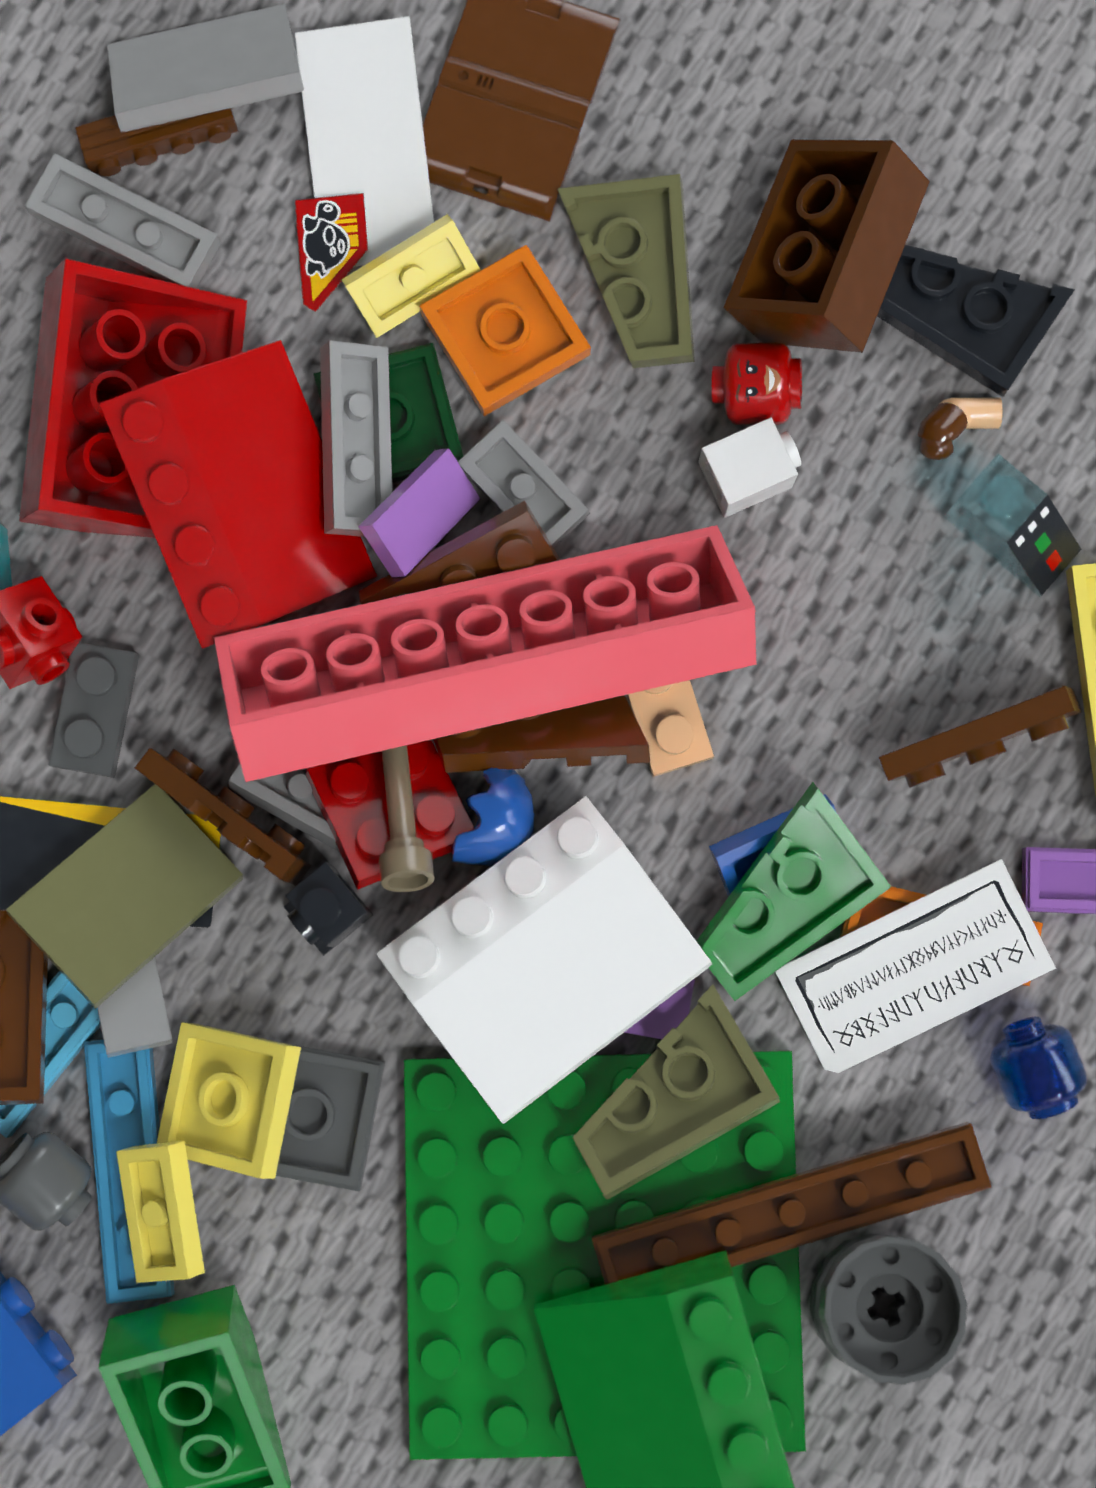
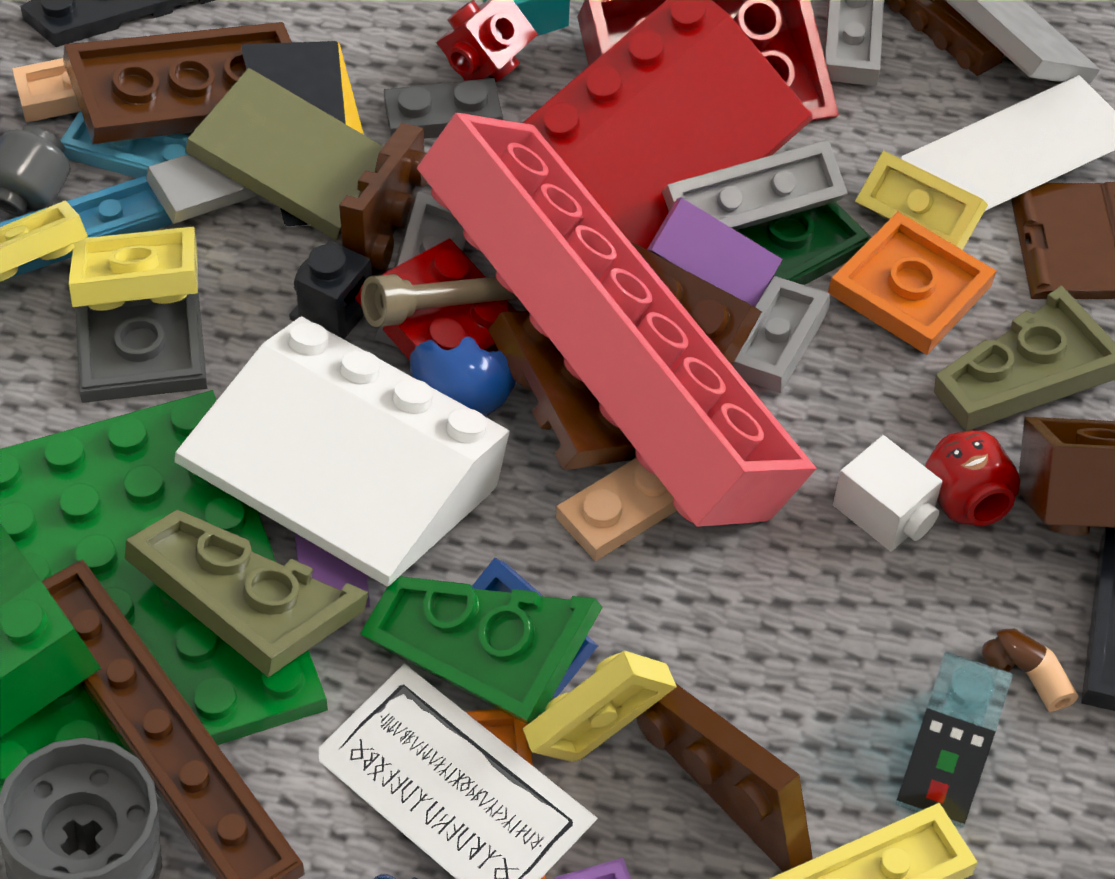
camera: 65 degrees right, 30 degrees down
(329, 243) = (928, 148): sticker -> none
(908, 804) = (599, 706): none -> light yellow plate

